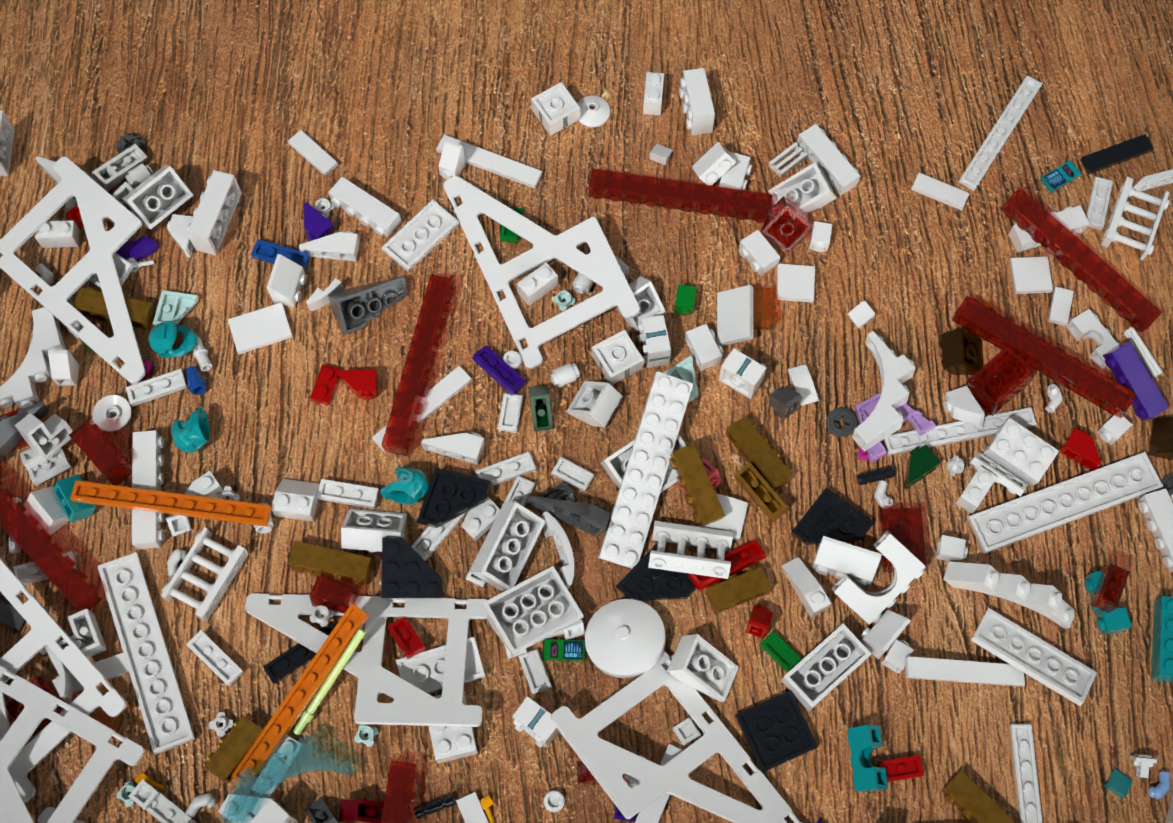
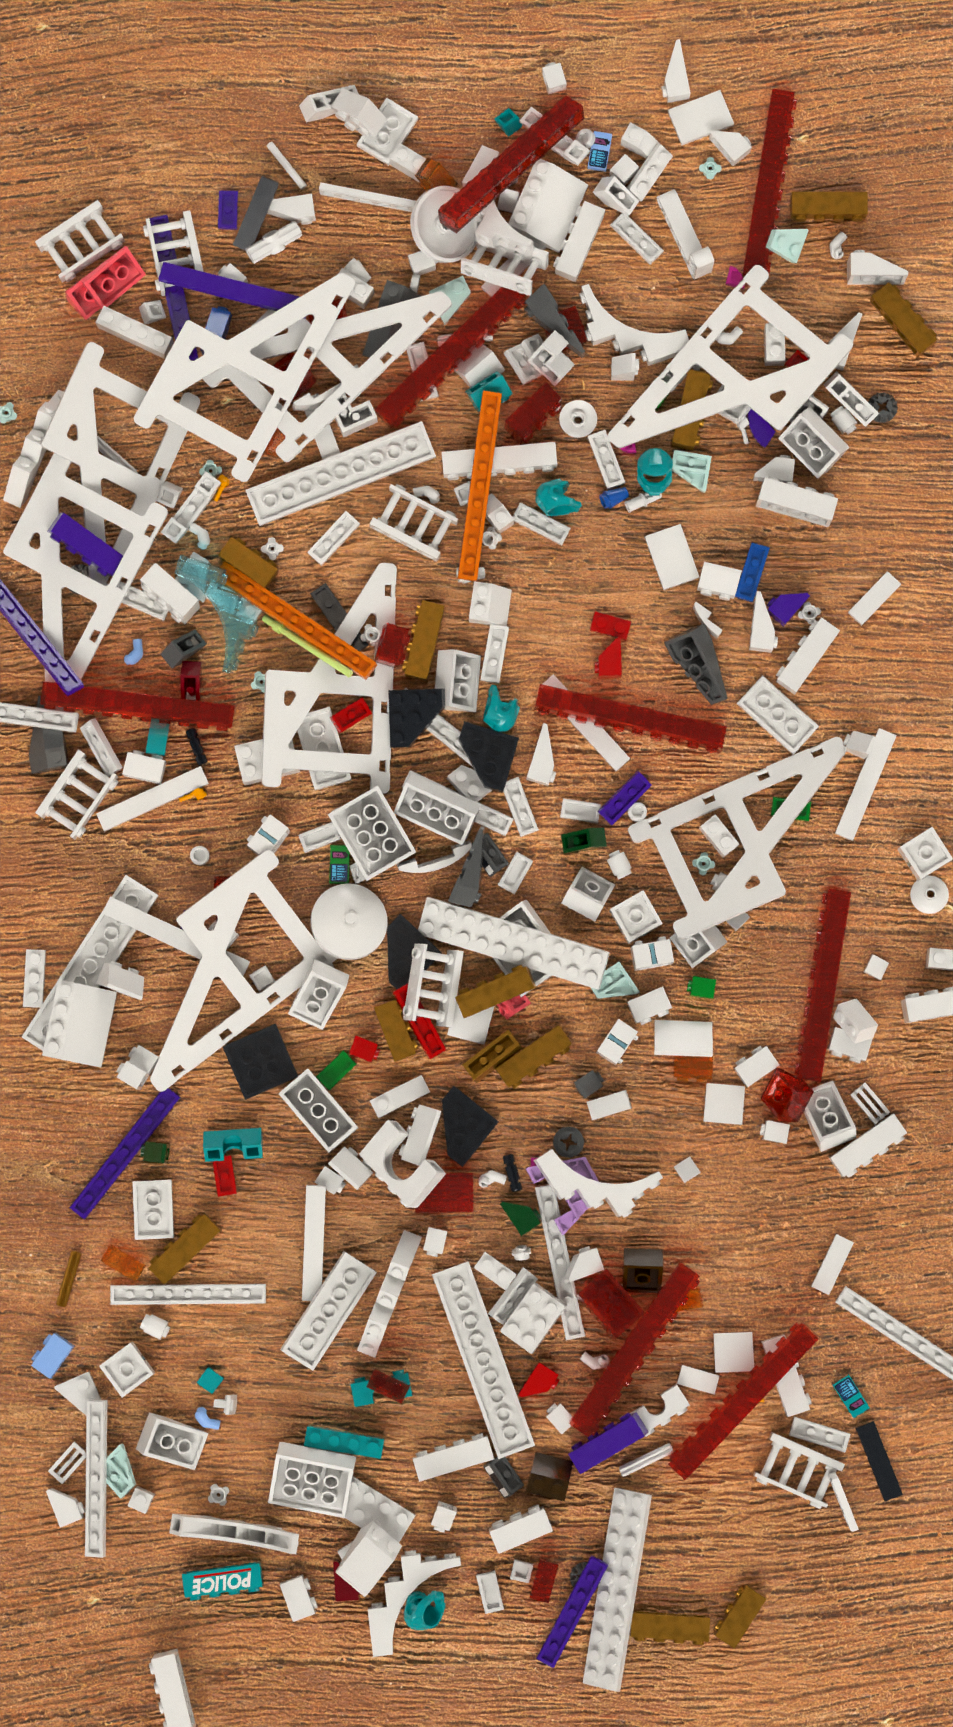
camera: 90 degrees right, 15 degrees up
(48, 125) = (903, 319): none -> pearl gold brick
(217, 449) = (541, 524): none -> white tile

